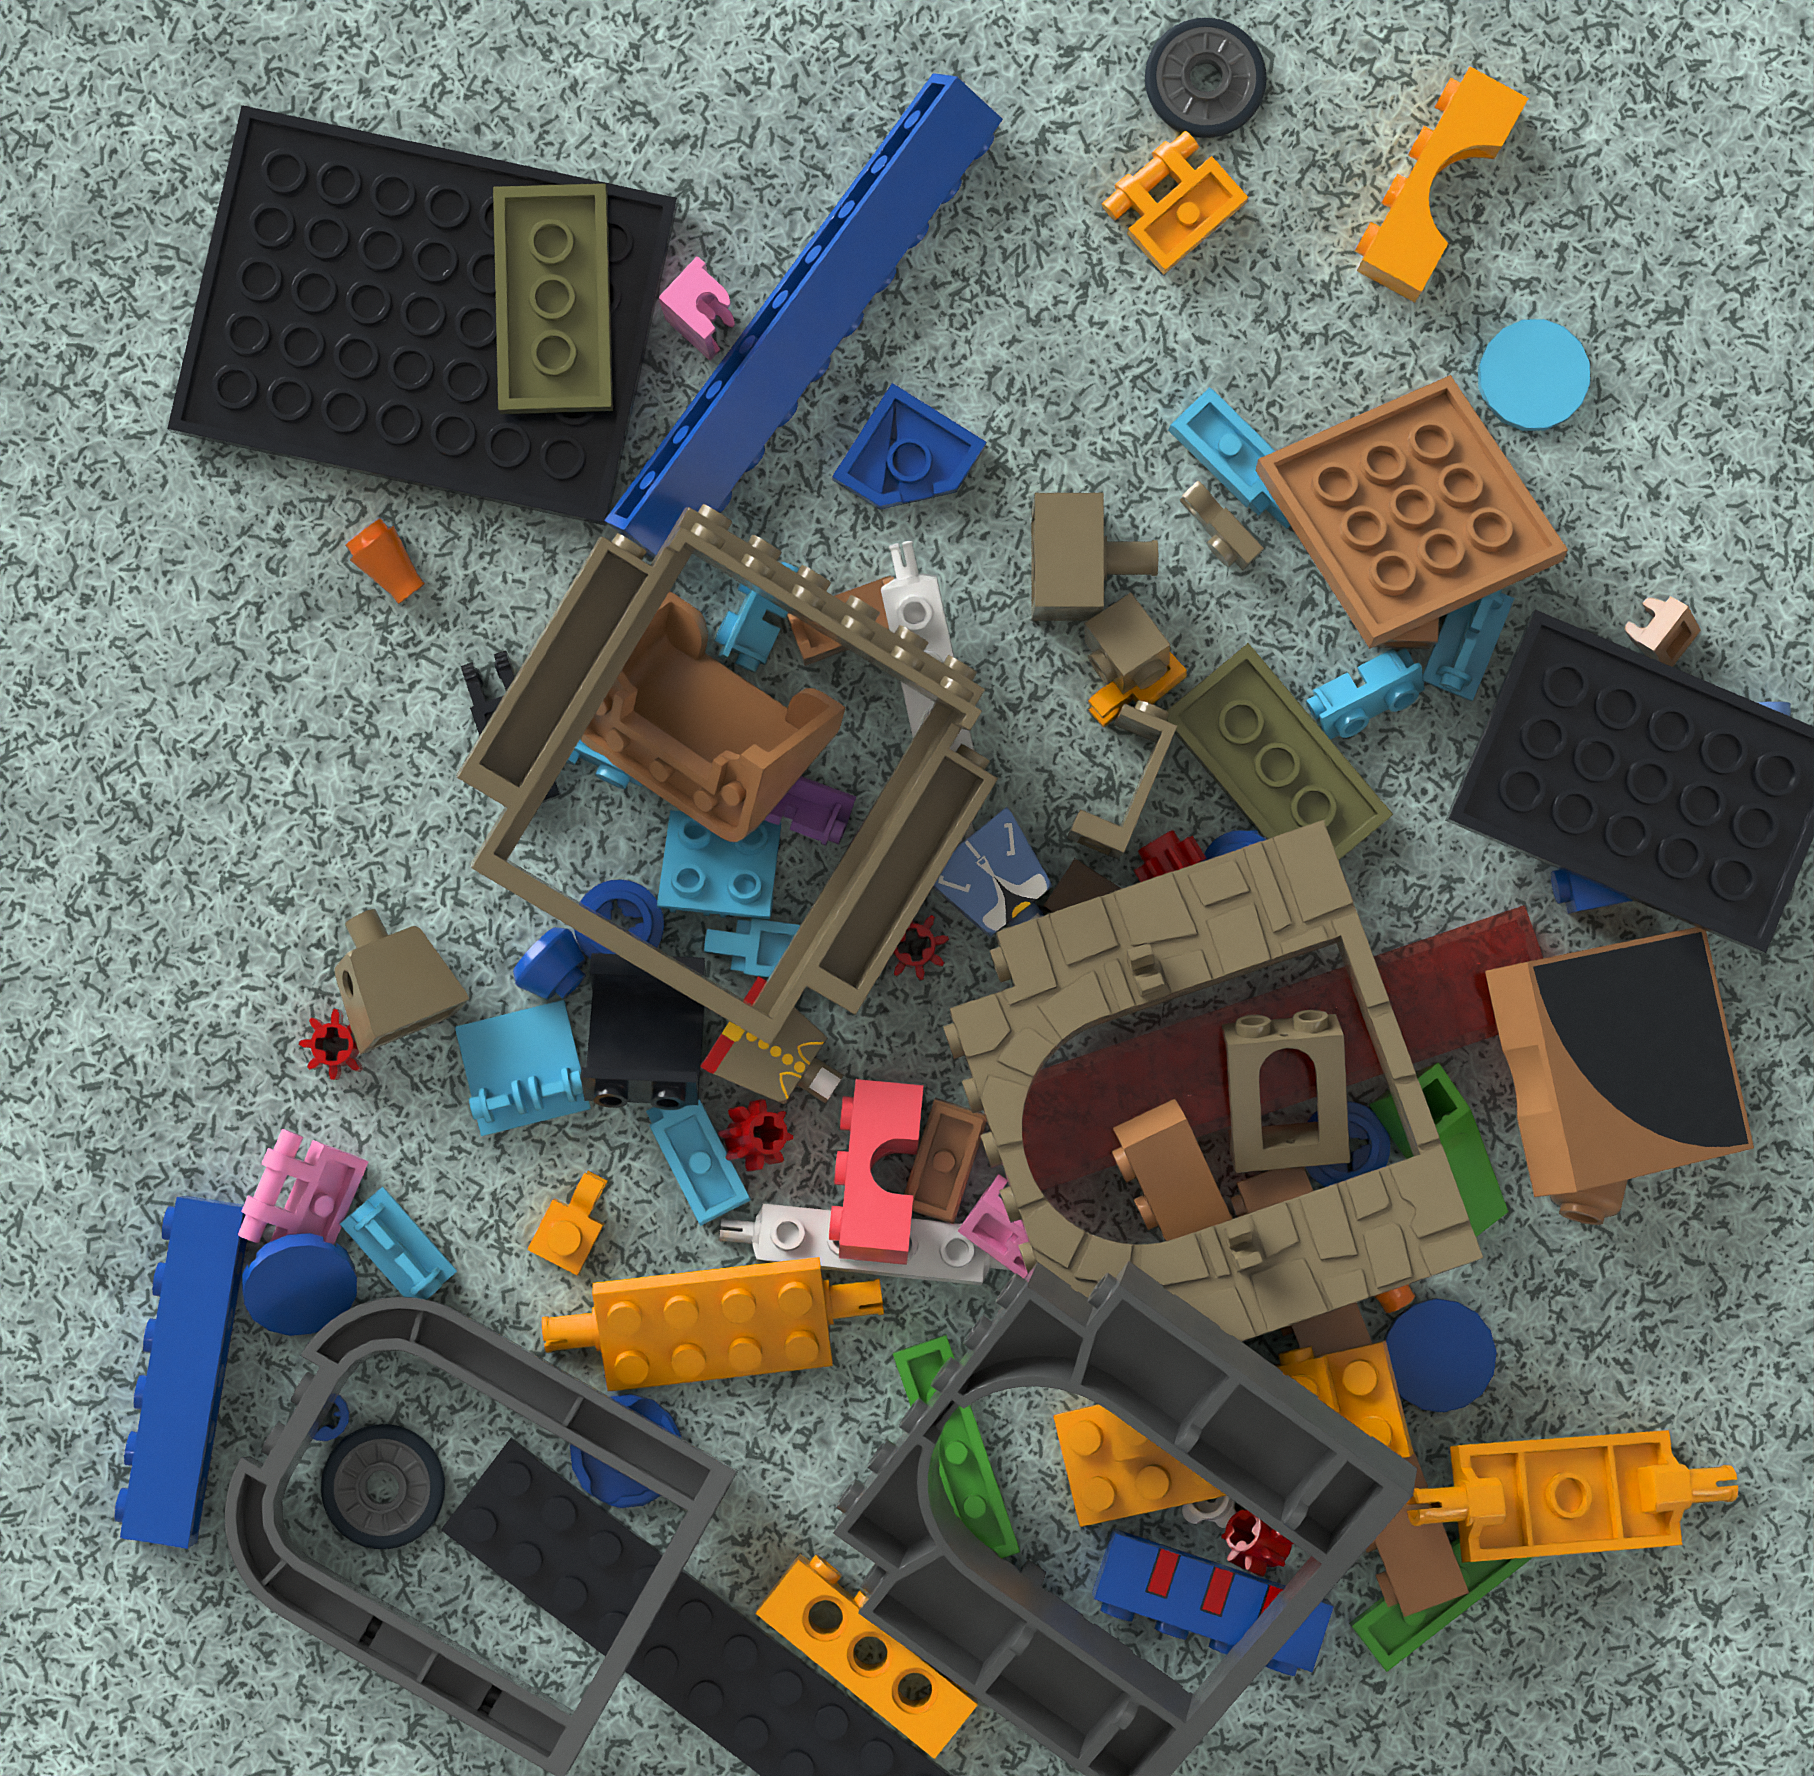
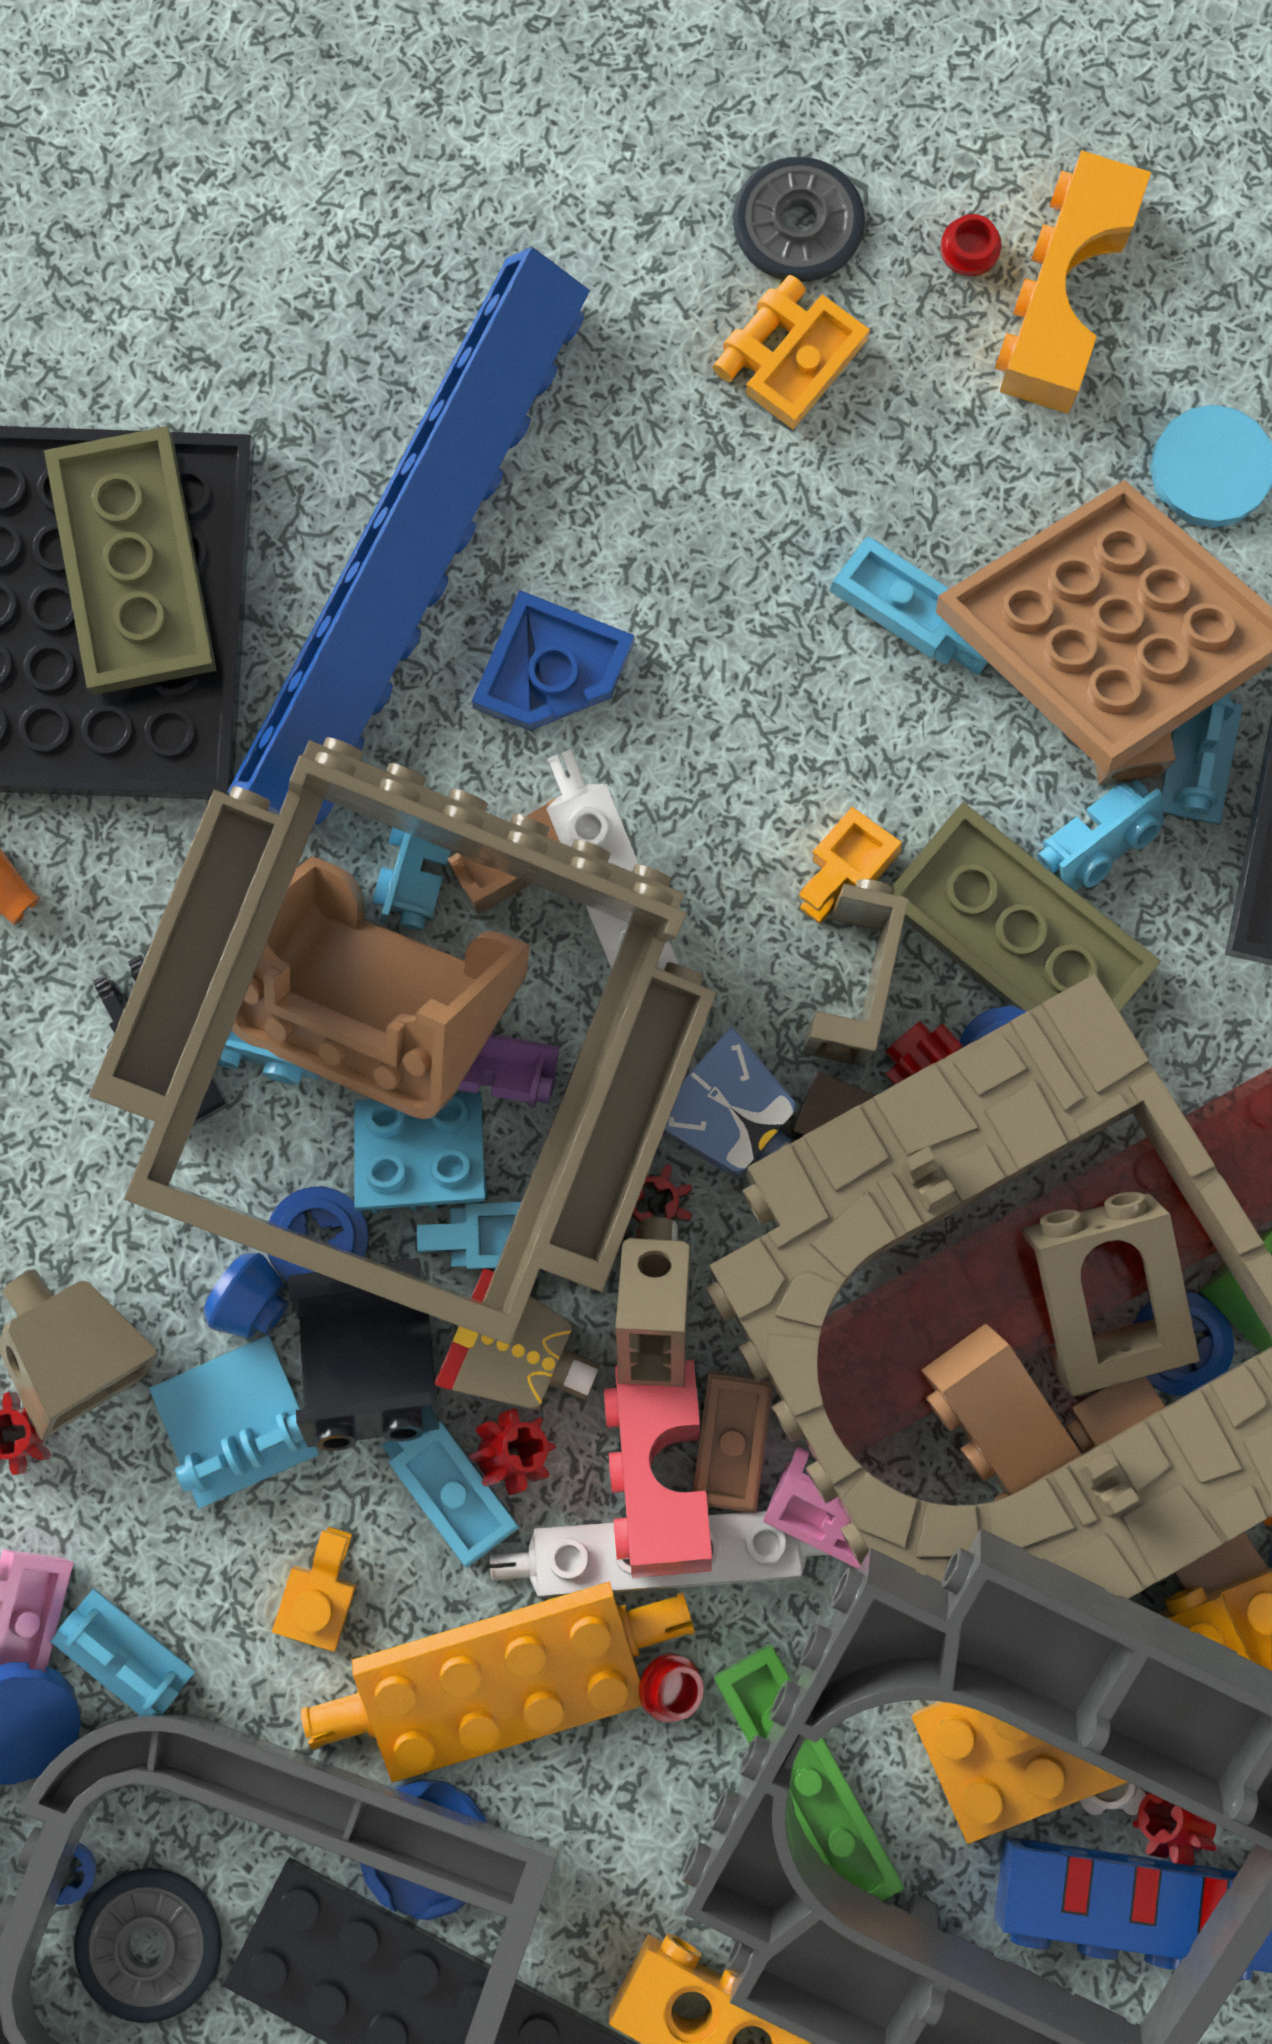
camera: 10 degrees left, 5 degrees down
(692, 307) = (283, 540): bright pink hinge -> none
(855, 1356) = (671, 1688): none -> red plate
(896, 1034) = (653, 1306): none -> dark tan torso
(1074, 556) = (754, 738): dark tan brick -> none
(1126, 645) = (831, 824): dark tan brick -> none
(1229, 537) = (919, 690): dark tan plate -> none
(1356, 130) = (970, 245): none -> red plate

